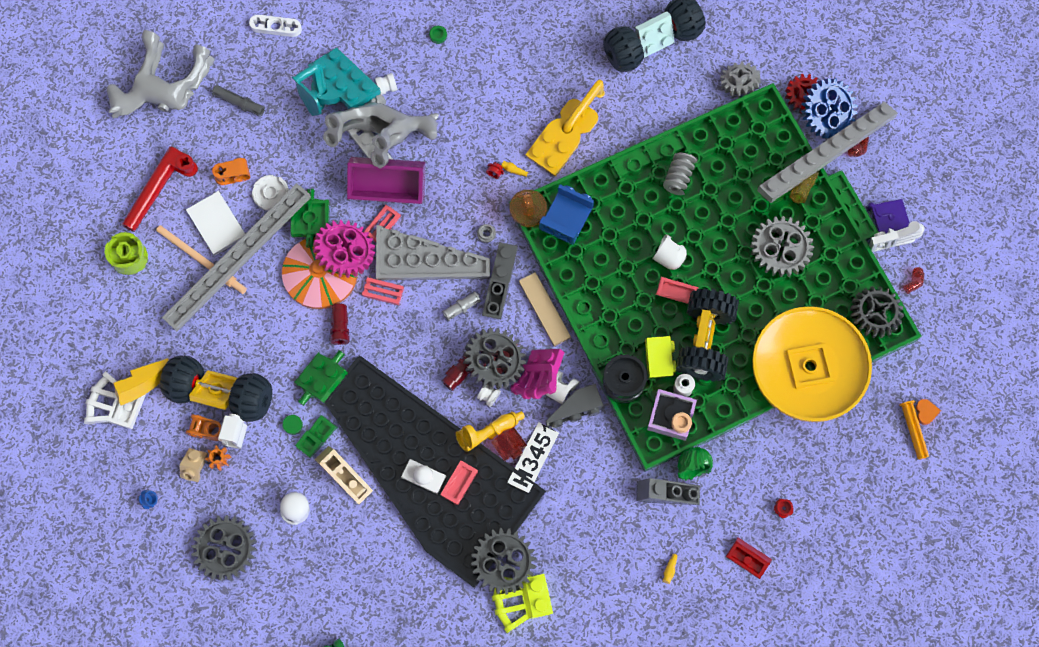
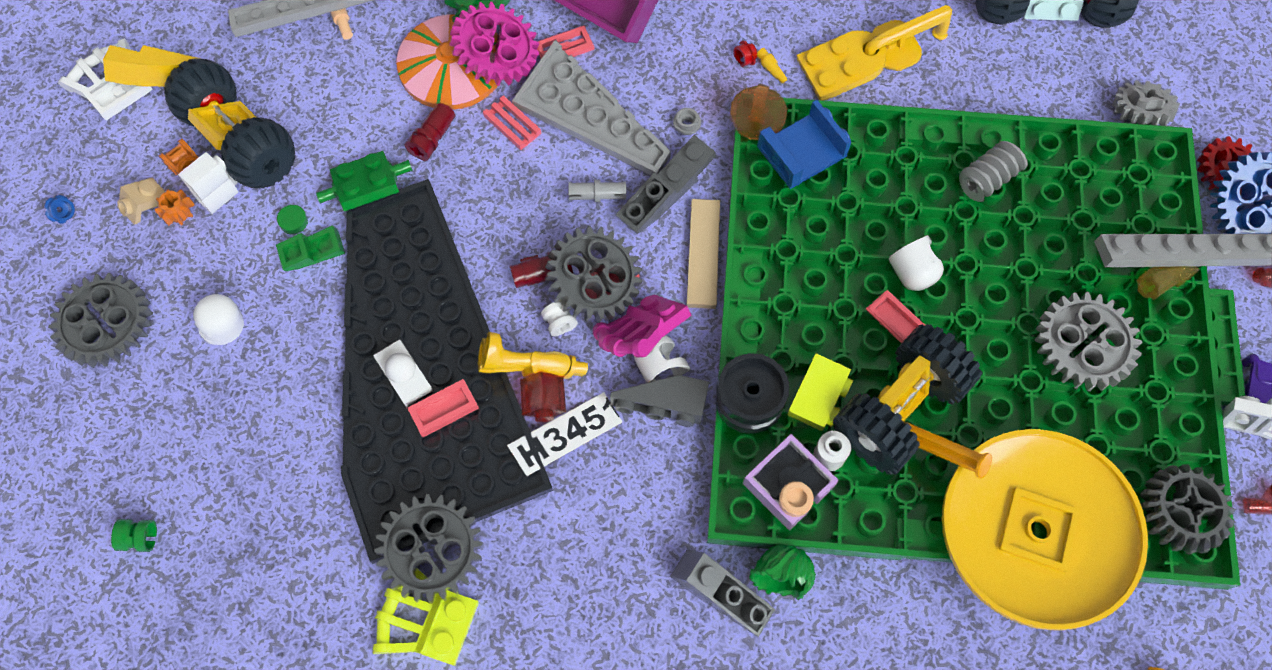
camera: 30 degrees right, 5 degrees down
(343, 474) = (307, 314): tan slope -> none
(744, 350) = (953, 452): none -> light orange axle

